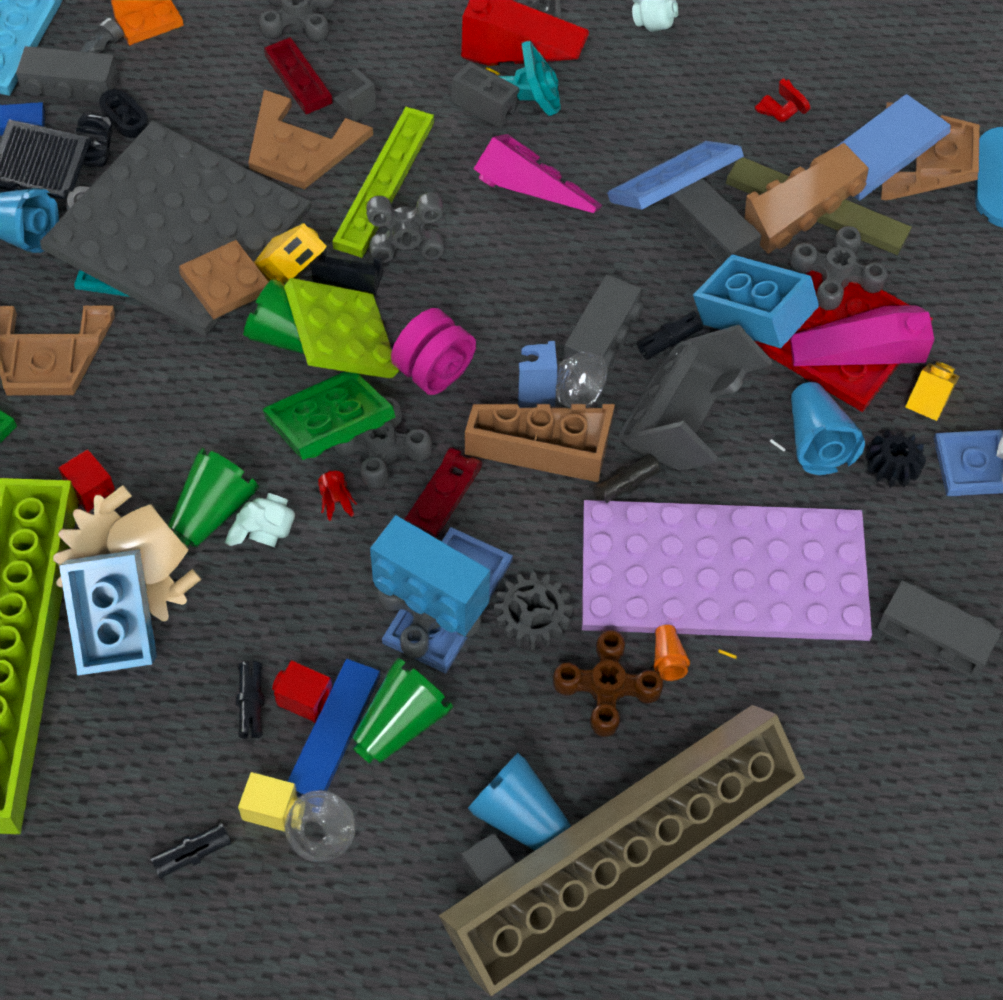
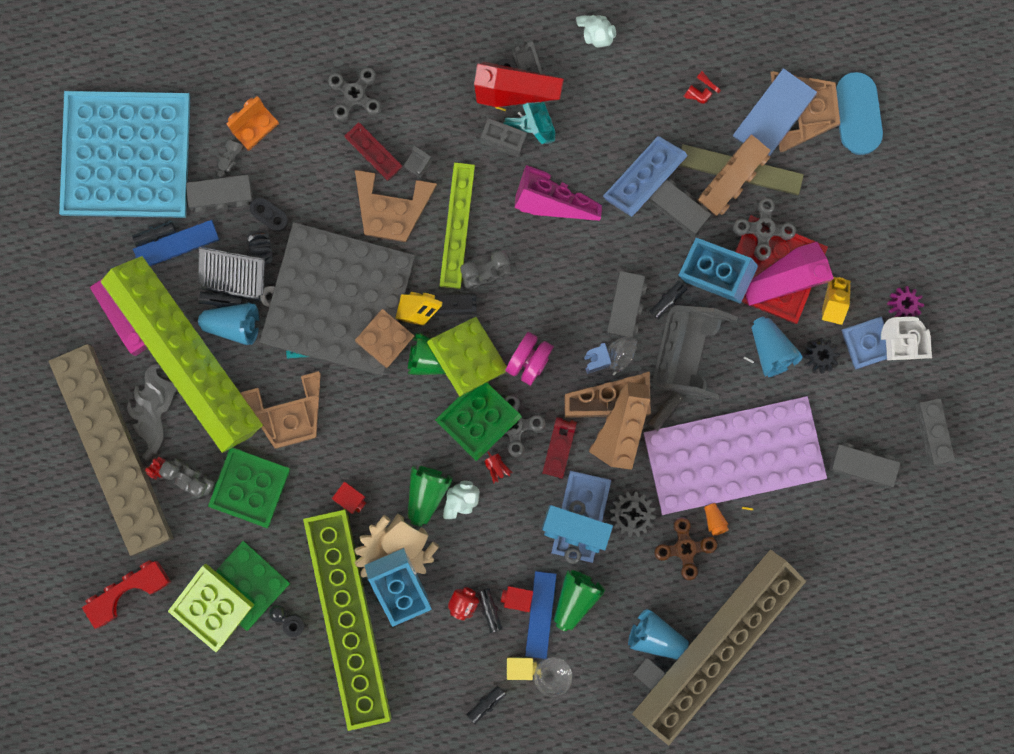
camera: 15 degrees left, 25 degrees up
(209, 675) = (463, 603): none -> red head
(547, 474) = (621, 434): none -> medium nougat wedge

